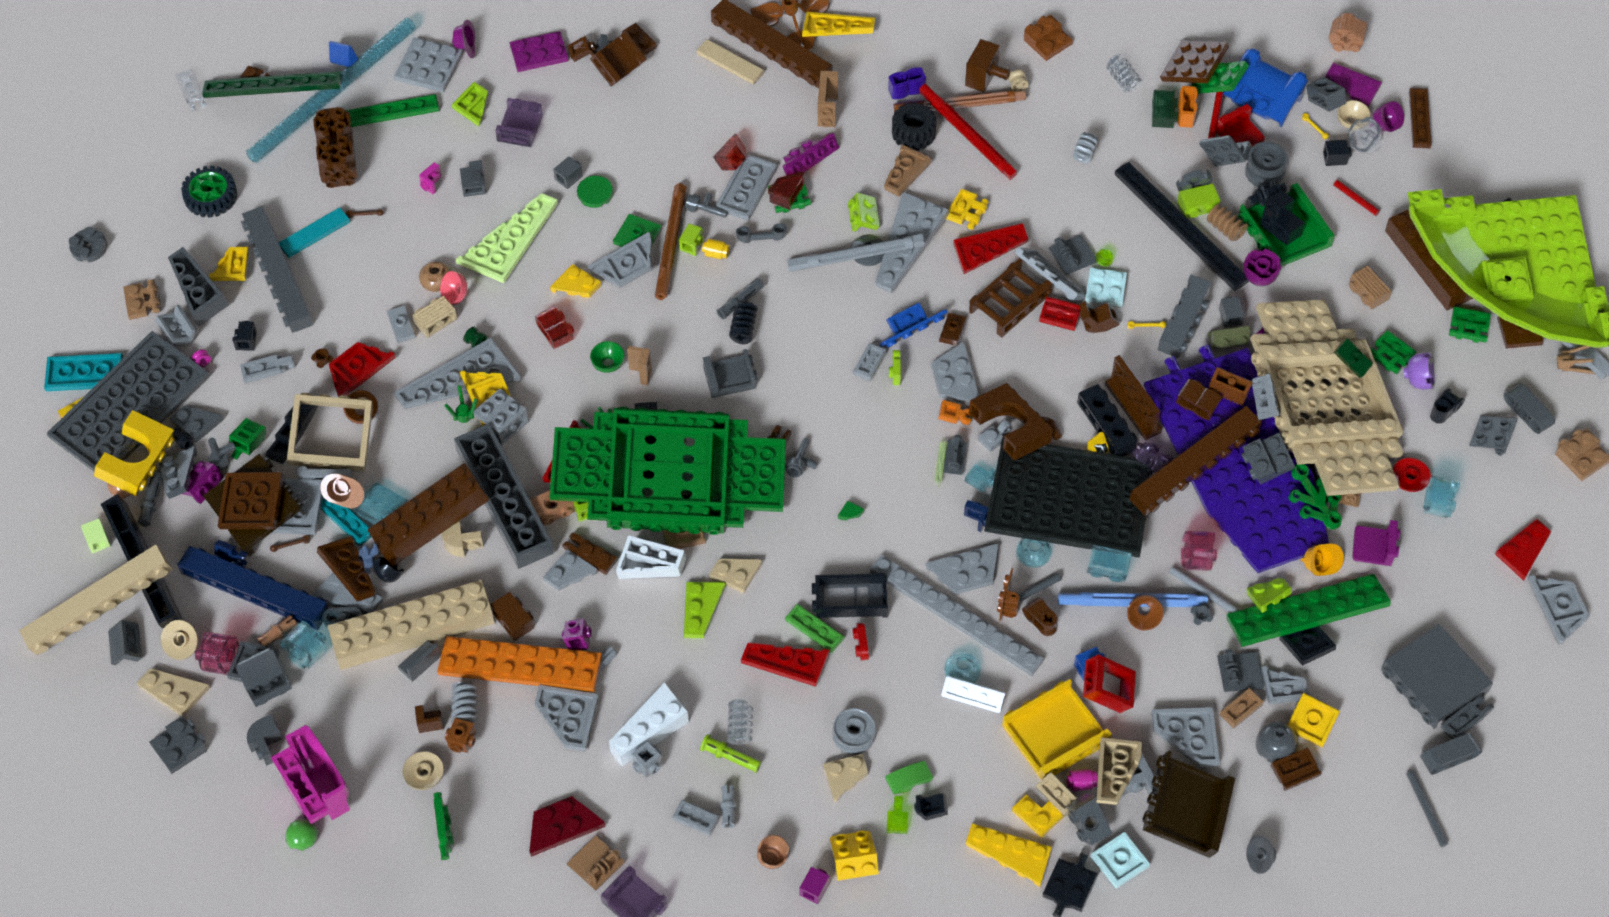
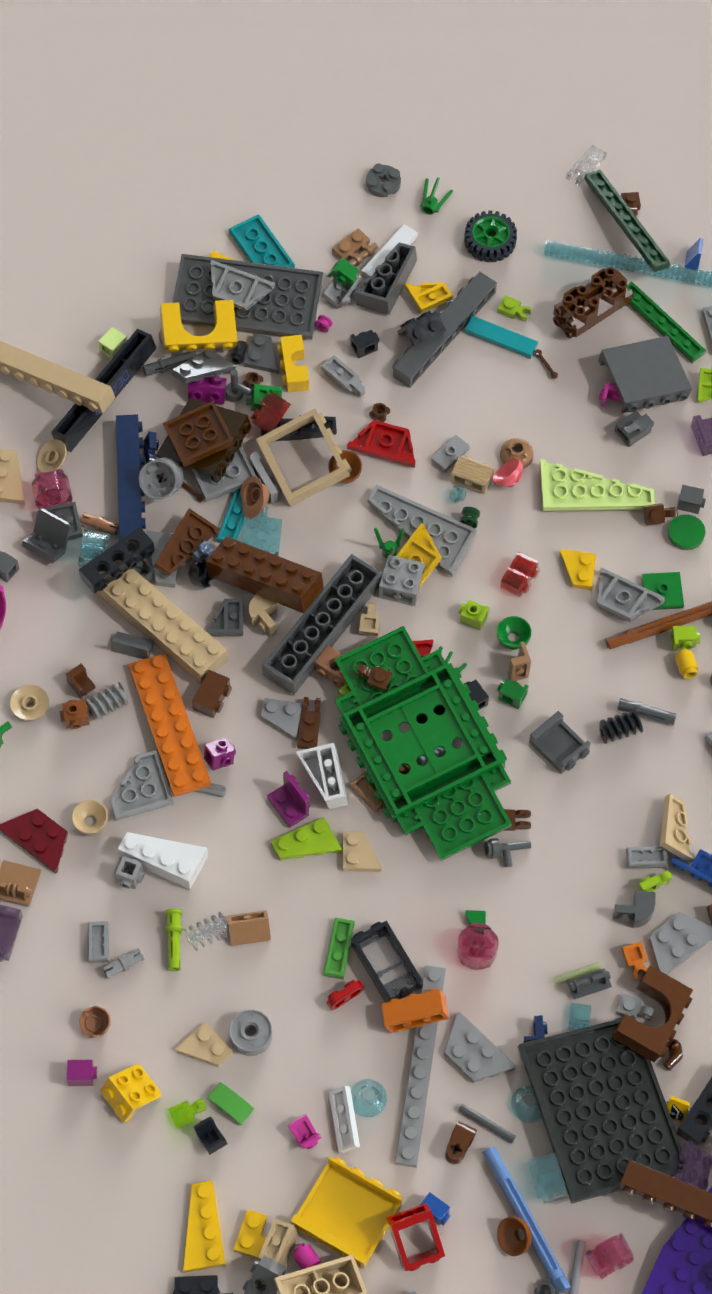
camera: 60 degrees right, 5 degrees up
(115, 403) = (238, 286): none -> light grey wing
(124, 642) = (30, 420): dark grey panel -> none
(141, 219) = (429, 204): none -> green plant
(165, 314) = (343, 272): none -> green brick
(166, 276) = (403, 235): none -> white tile
(219, 436) = (252, 376): none -> reddish brown plate
(239, 405) = (295, 376): none -> yellow arch
(266, 281) = (423, 328): none -> black bracket
(268, 436) = (270, 413): none -> clear red brick
(283, 554) = (152, 483): none -> light grey wheel
(290, 212) = (512, 307): none -> lime plate
(336, 652) = (136, 540): none -> black brick
(430, 142) = (646, 373): none -> dark grey panel
(446, 336) = (457, 494): none -> clear light blue plate
(446, 568) = (228, 619): none -> dark grey wing
(522, 461) = (369, 622): none -> tan plate
(564, 203) = (656, 513): none -> reddish brown plate
(569, 379) = (473, 614): none -> lime brick
(569, 761) = (87, 809): none -> tan piece
(590, 470) = (377, 678): none -> reddish brown plate
(656, 598) = (290, 800): none -> magenta bracket
(661, 385) = (512, 693): none -> green brick
(755, 687) = (249, 928): none -> medium nougat panel
(796, 664) = (292, 947): red wing -> none
(853, 328) = (673, 830): none -> tan wing
(878, 519) = (480, 957): none -> clear pink brick
(909, 591) = (415, 1010): none -> orange brick
(913, 387) = (641, 910): none -> dark grey brick
(969, 730) = (304, 1132): none -> dark pink bracket
(1008, 600) = (451, 1100): dark orange hinge -> none

